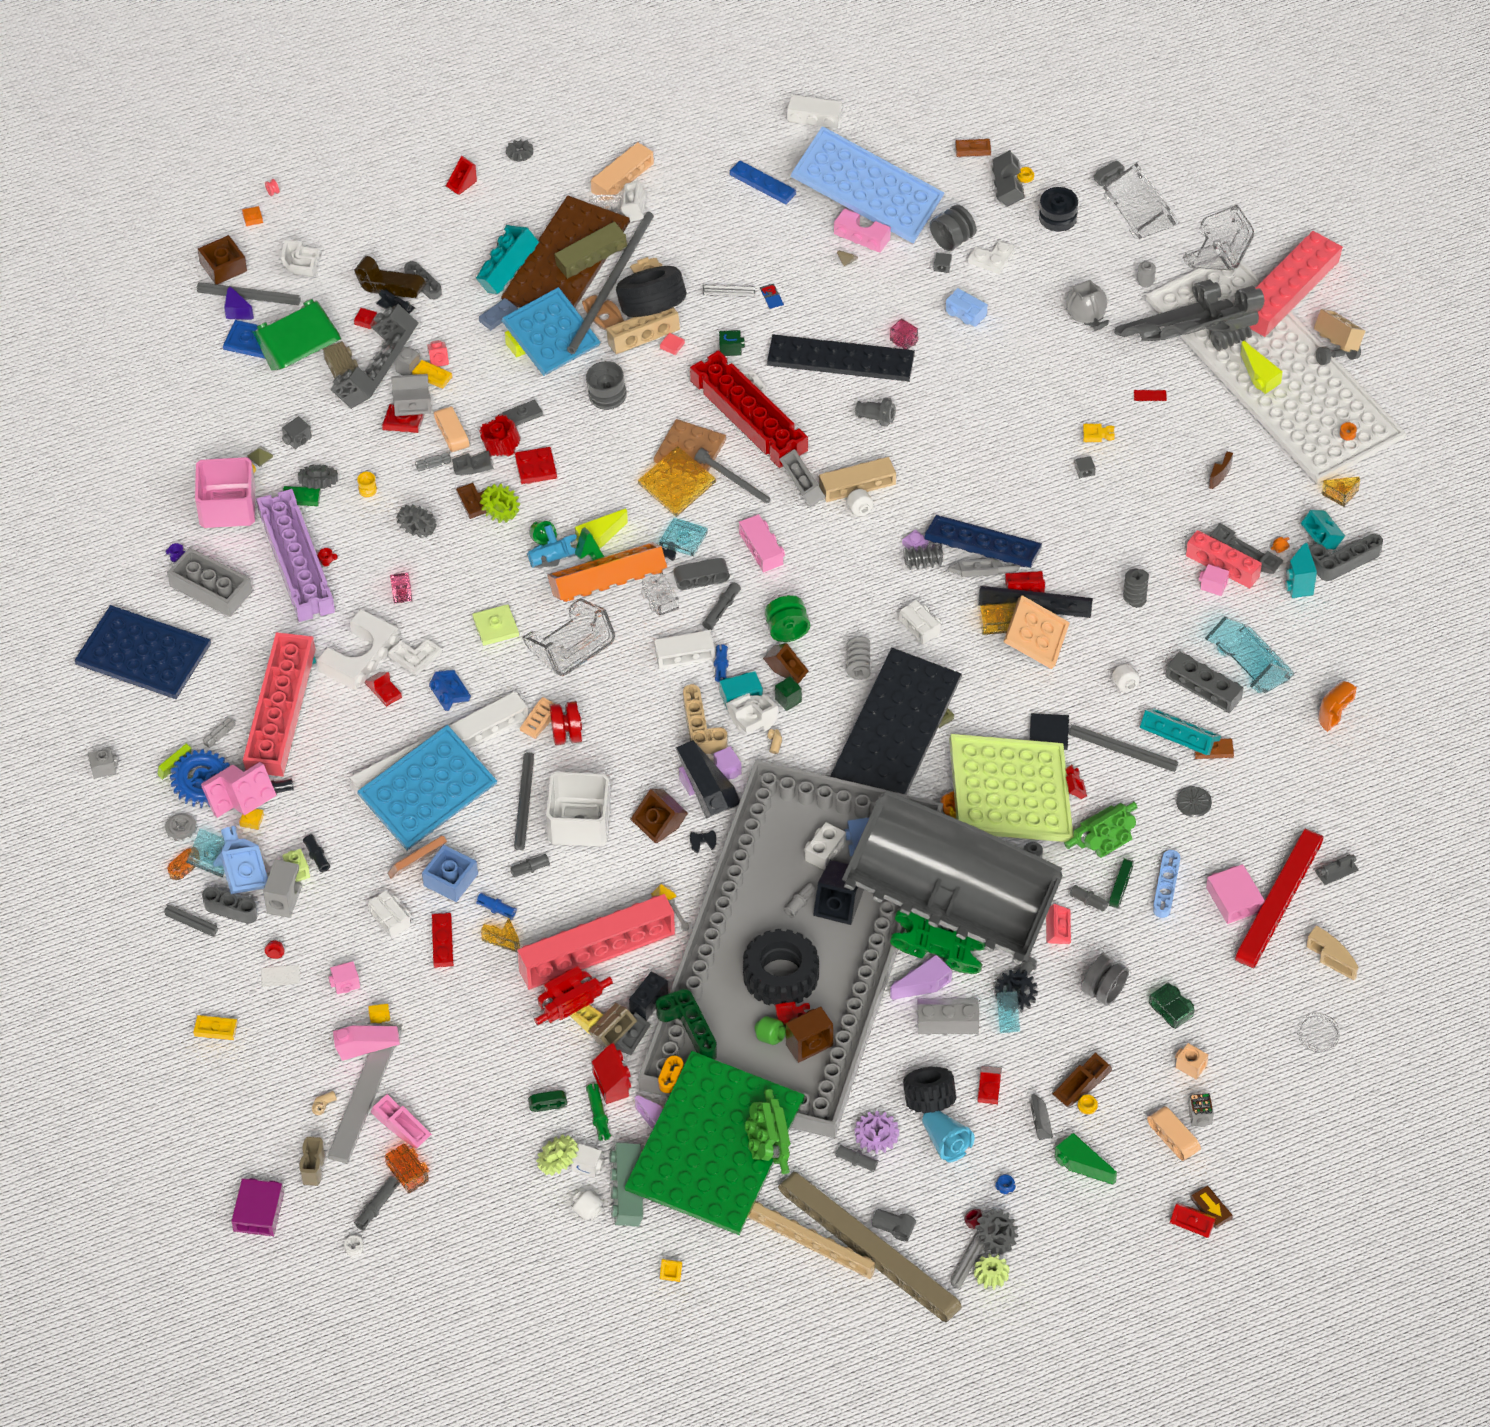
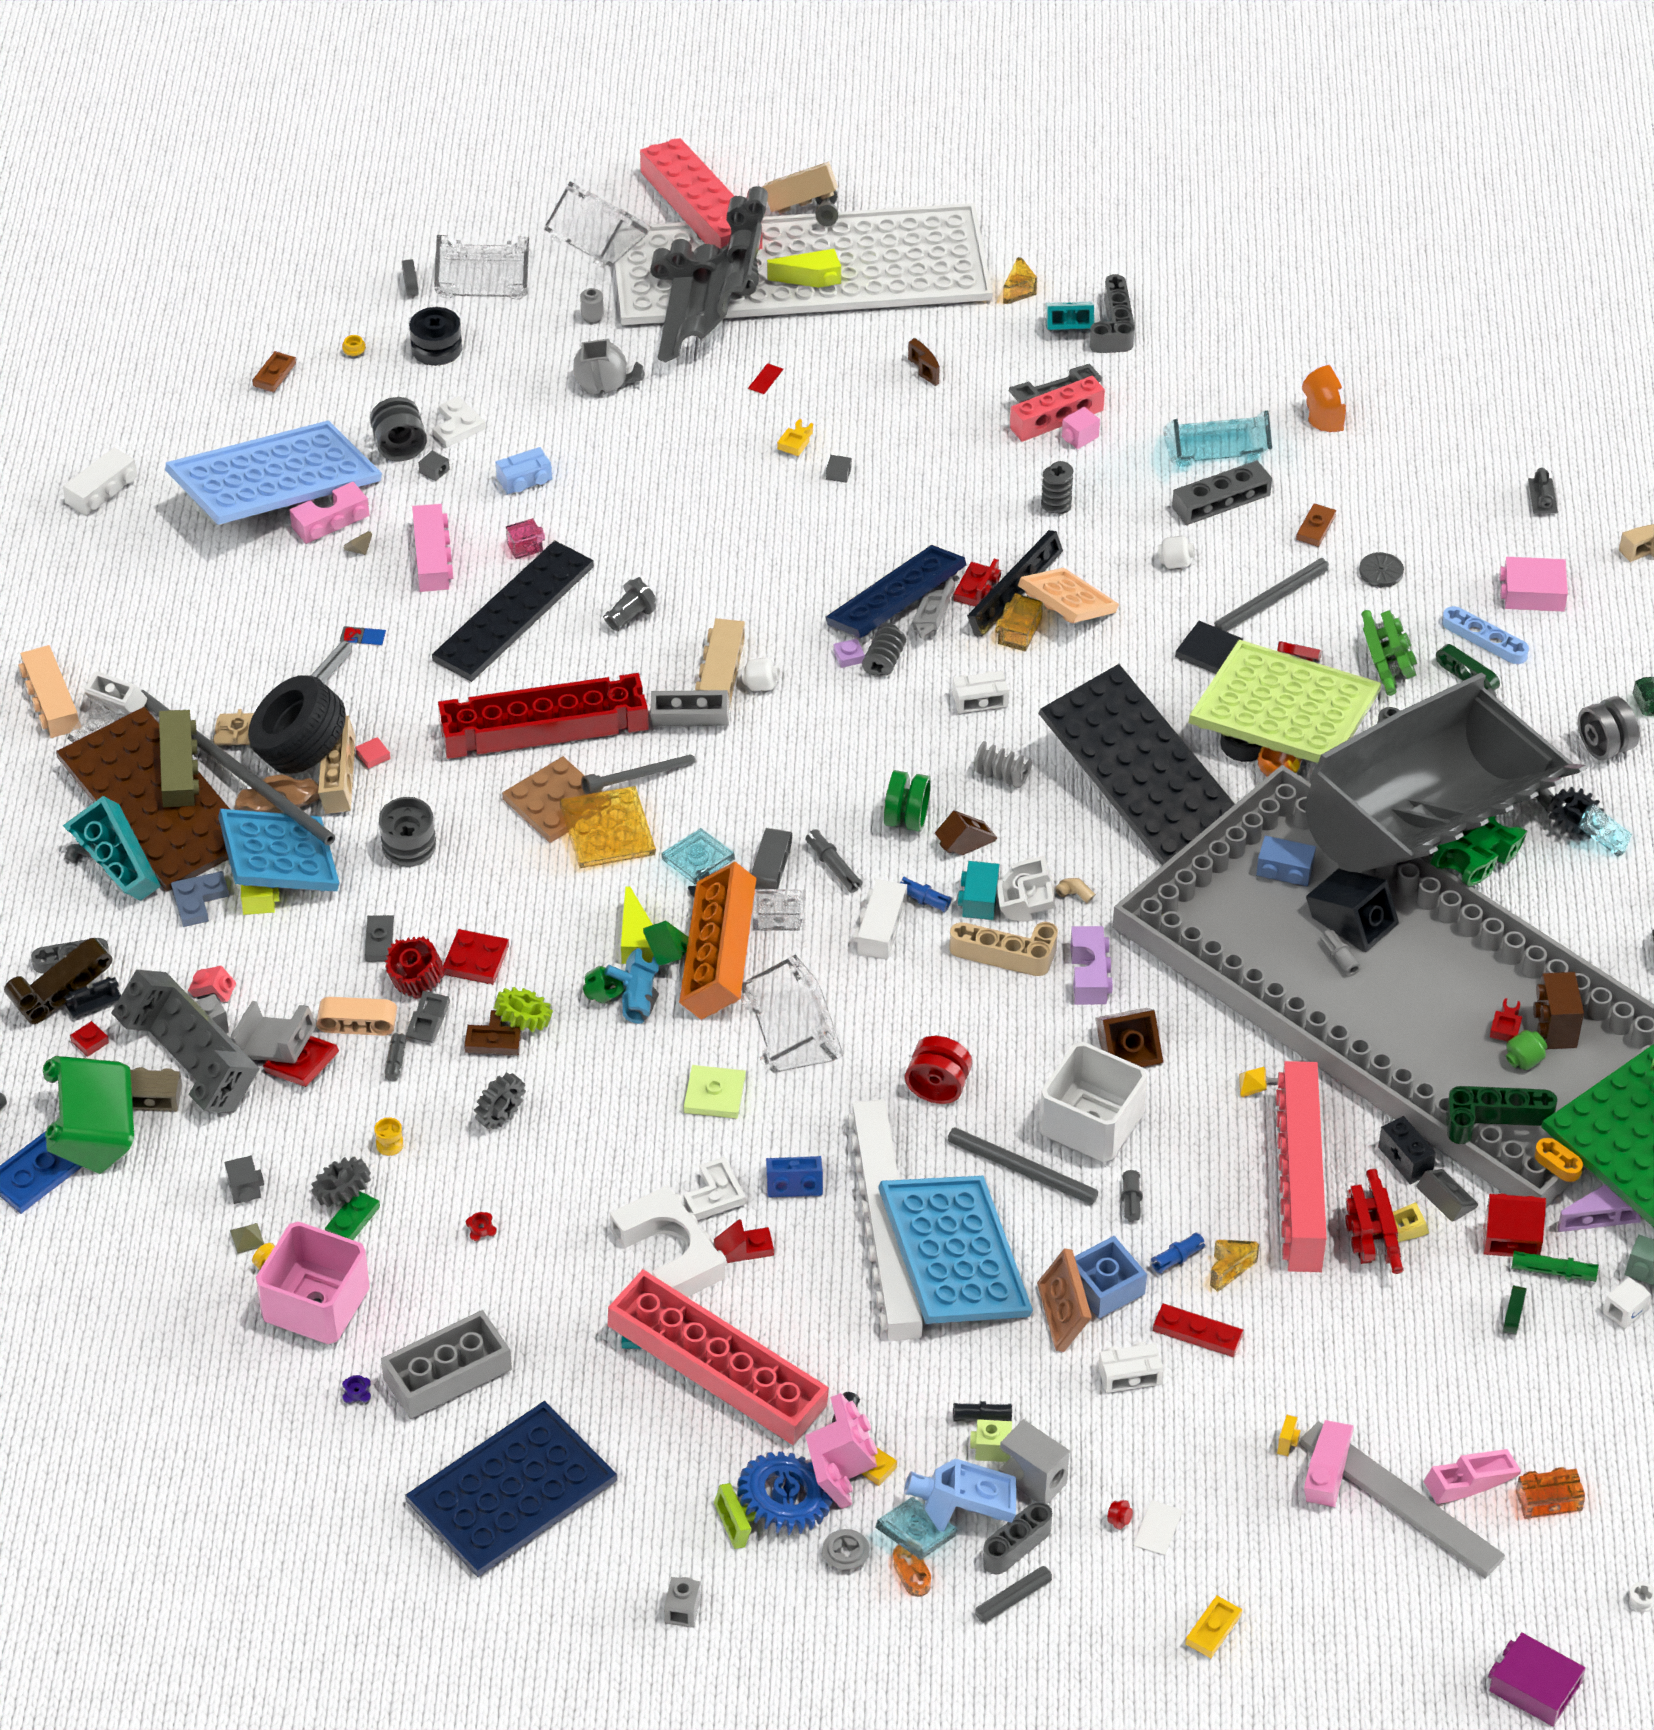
camera: 65 degrees left, 5 degrees down
(218, 732) = (708, 1451): light grey axle -> none
(295, 555) = (468, 1252): lavender brick -> none
(312, 1161) = (1497, 1588): dark tan brick -> none
(321, 1102) = (1401, 1557): tan arm -> none
(344, 978) = (1210, 1452): bright pink brick -> none
(372, 1209) = (1609, 1569): dark grey pin -> none
(401, 588) = (599, 1160): clear pink brick -> none
(436, 375) = (238, 1002): yellow plate -> none
(543, 708) = (894, 1085): light nougat slope -> none
(557, 1155) = (1620, 1320): yellowish green gear -> none
(612, 1025) = (1439, 1199): dark tan brick -> none
(697, 839) = (1182, 1020): black piece -> none
(708, 782) = (1118, 968): black wedge -> none
(731, 343) = (418, 696): dark green brick -> none
(761, 543) = (761, 786): bright pink brick -> none
(763, 182) = (172, 573): blue plate -> none
(780, 946) = (1438, 1026): black tyre -> none
(788, 693) = (1015, 846): dark green brick -> none
(828, 847) = (1275, 897): white brick -> none
(864, 292) = (431, 548): none -> bright pink brick
(925, 979) = (1512, 879): lavender slope -> none
(948, 1015) = (1575, 886): light grey slope -> none
(1008, 187) = (371, 365): dark grey arch -> none
(1179, 731) = (1282, 537): teal fence -> none
(1279, 898) = (1551, 543): red beam -> none
(1280, 544) = (1064, 358): orange plate -> none
(1301, 574) = (1123, 352): teal slope -> none
(1343, 431) = (945, 241): orange bush -> none

